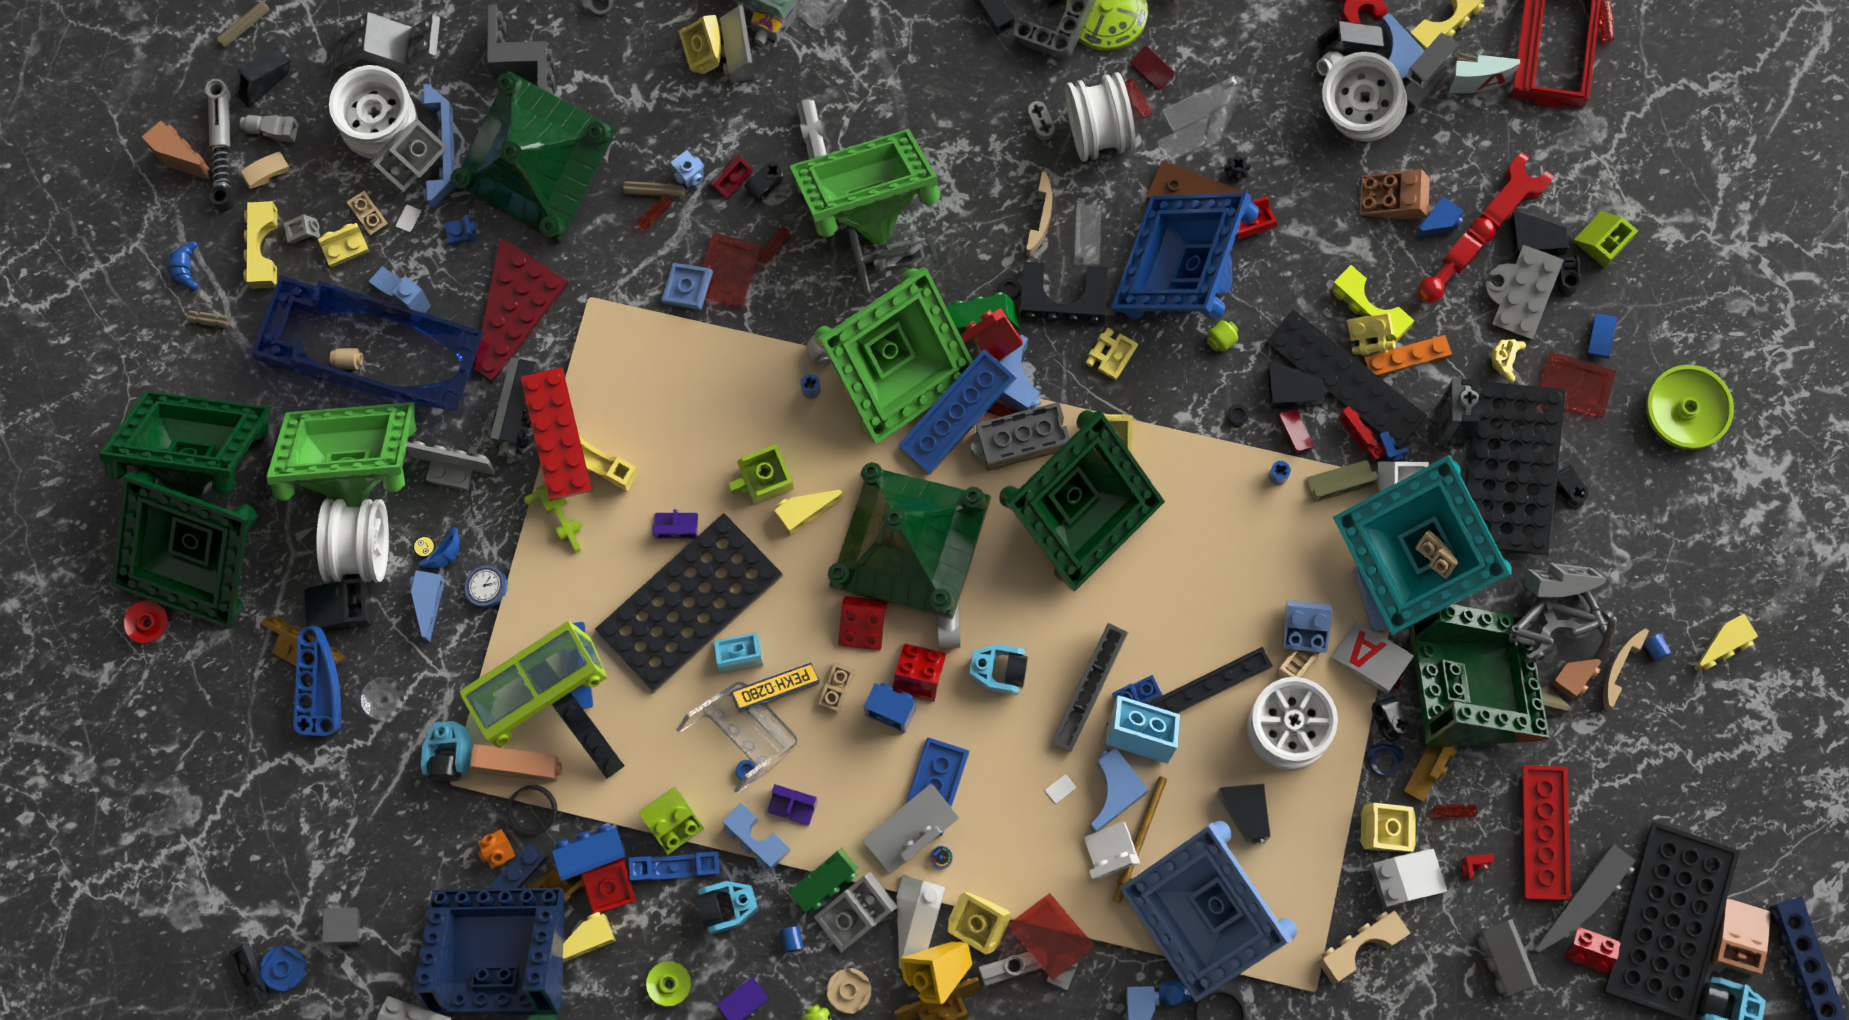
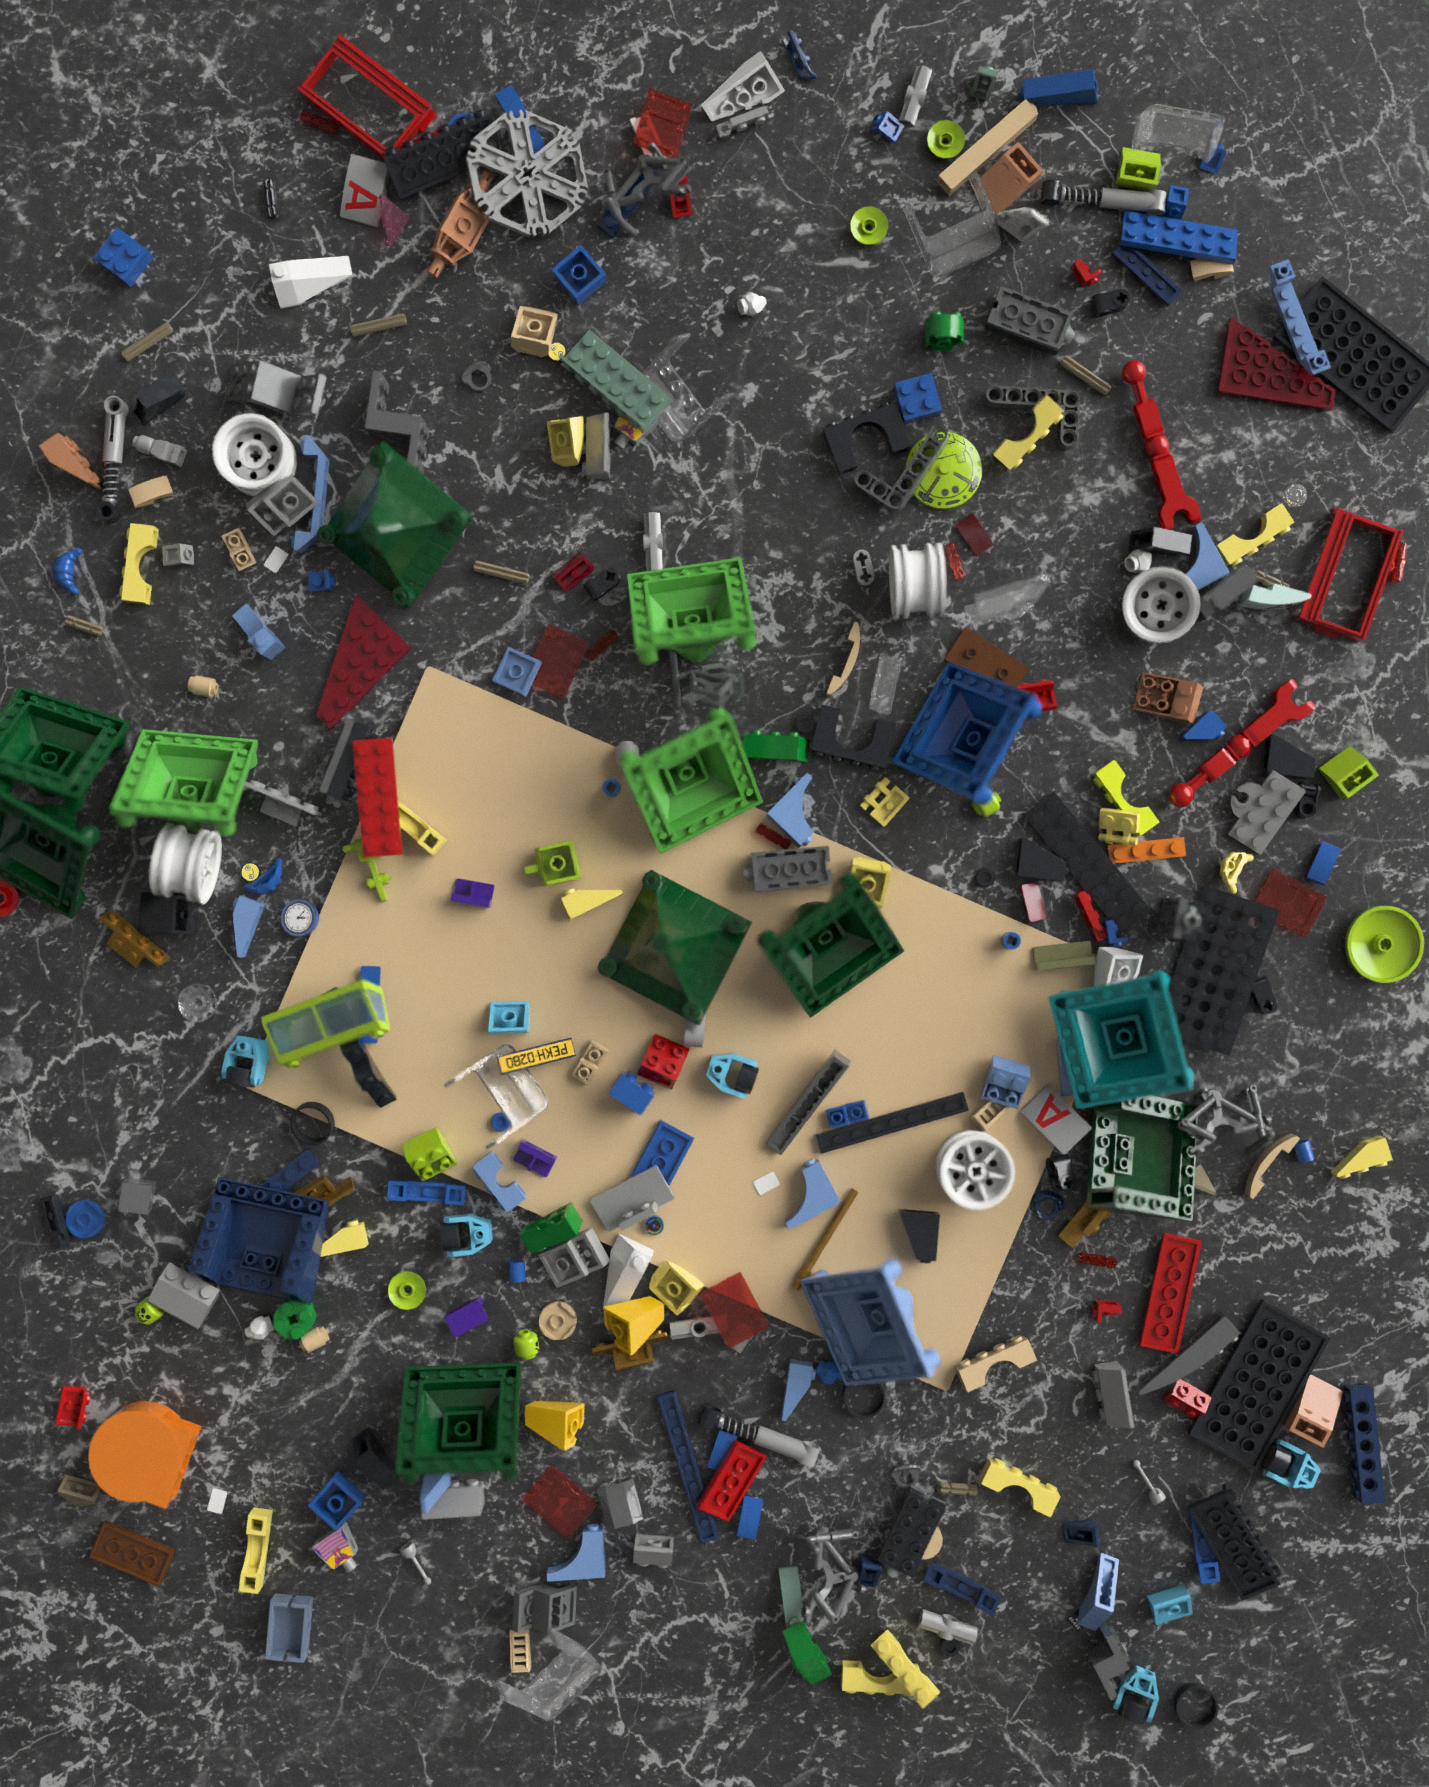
camera: 10 degrees right, 15 degrees up
(324, 688) = (145, 989): blue beam -> none
(332, 299) = (158, 618): clear blue windscreen -> none
(343, 244) = (213, 576): light yellow bracket -> none
(495, 849) = (277, 1151): orange brick -> none
(515, 763) = (302, 1083): nougat slope -> none
(588, 851) = (355, 1170): blue slope -> none
(608, 886) = (367, 1200): red tile -> none
(654, 212) = (498, 594): clear red axle -> none
(687, 169) = (531, 554): light blue brick -> none
(688, 616) = (466, 934): black piece -> none
(862, 623) = (621, 1009): red bracket -> none
(957, 411) = (737, 836): blue plate -> none
(993, 334) = (781, 773): red bracket -> none
(1111, 851) = (798, 1248): white bracket -> none
(1143, 729) = (846, 1149): medium azure slope -> none
(1238, 172) = (1033, 651): black gear -> none
(1388, 827) = (1037, 1266): light yellow slope -> none
(1407, 878) = (1045, 1311): slope -> none
(1438, 553) = (1135, 1055): tan slope -> none
(1562, 580) = (1236, 1081): light grey slope -> none
(1574, 676) = (1226, 1164): nougat slope -> none

